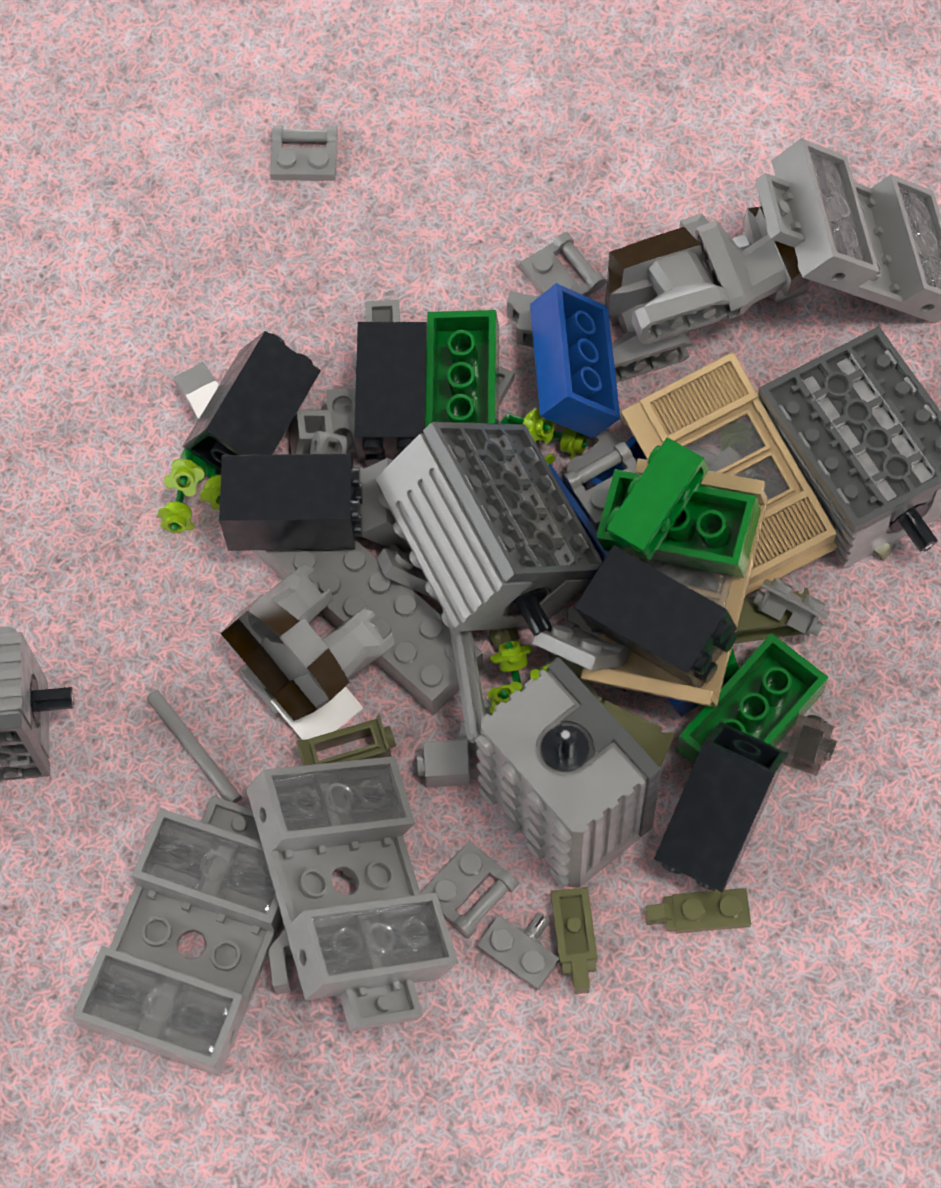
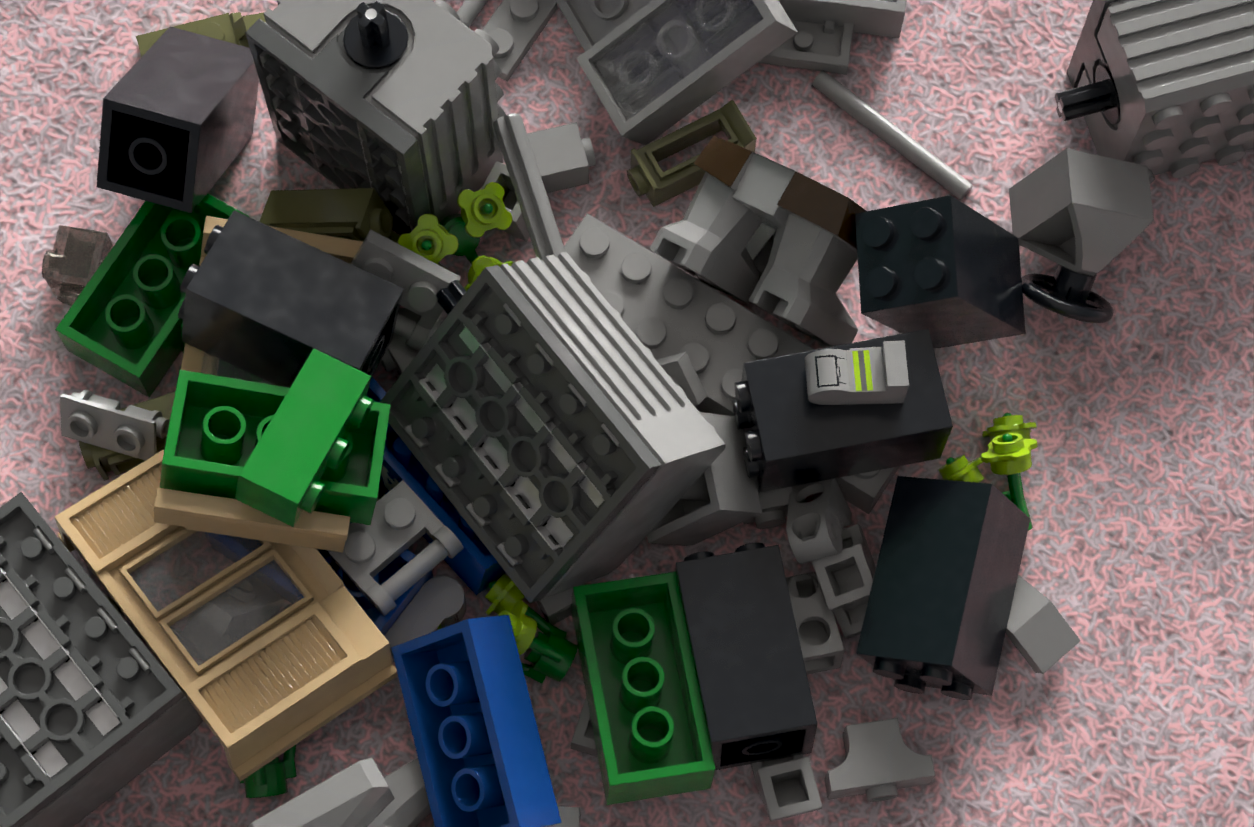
camera: 165 degrees right, 5 degrees up
(86, 628) = (1082, 216): none -> light grey piece
(195, 587) = (939, 271): none -> black brick
(276, 486) = (858, 375): none -> light grey leg
(323, 332) = (877, 763): none -> light grey brick

